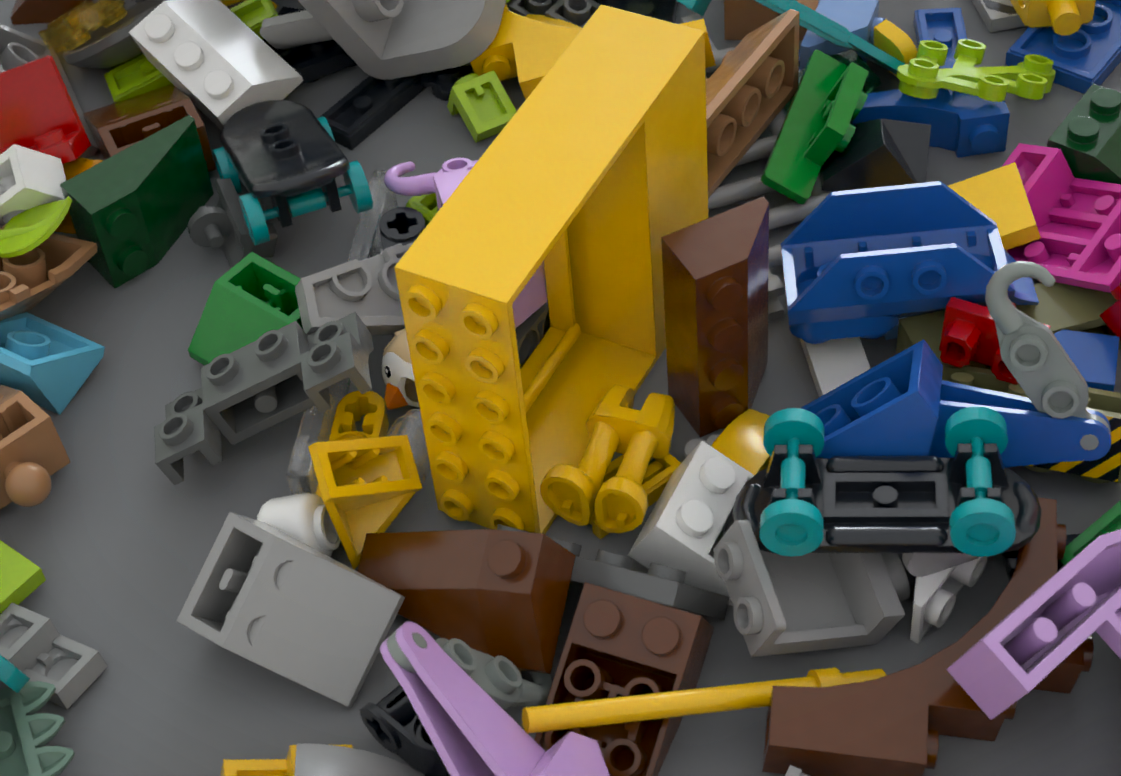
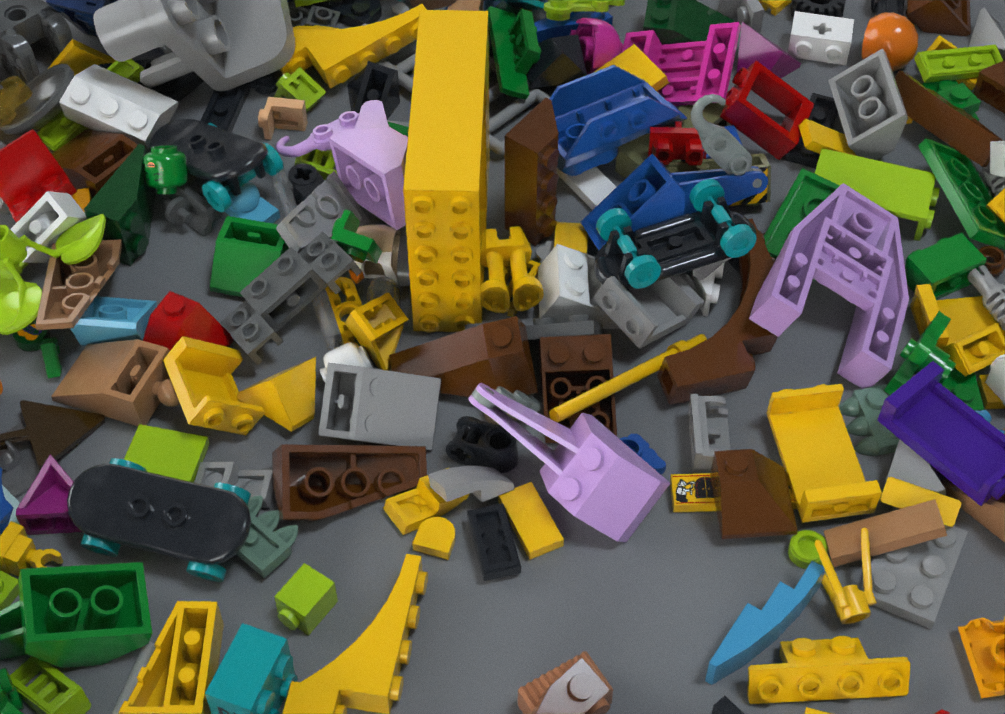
camera: 30 degrees left, 5 degrees up
(80, 495) = (206, 386): none -> yellow panel
(105, 406) = (184, 317): none -> red slope
(173, 700) = (331, 479): none -> reddish brown wedge
(177, 543) = (286, 396): none -> yellow slope
(206, 160) = (165, 169): none -> green head
(310, 243) = (252, 206): none -> medium azure tile
(382, 327) = (354, 244): none -> green bracket
(434, 131) = (282, 114): none -> light nougat bracket
(962, 145) = (598, 42): none -> dark pink cylinder

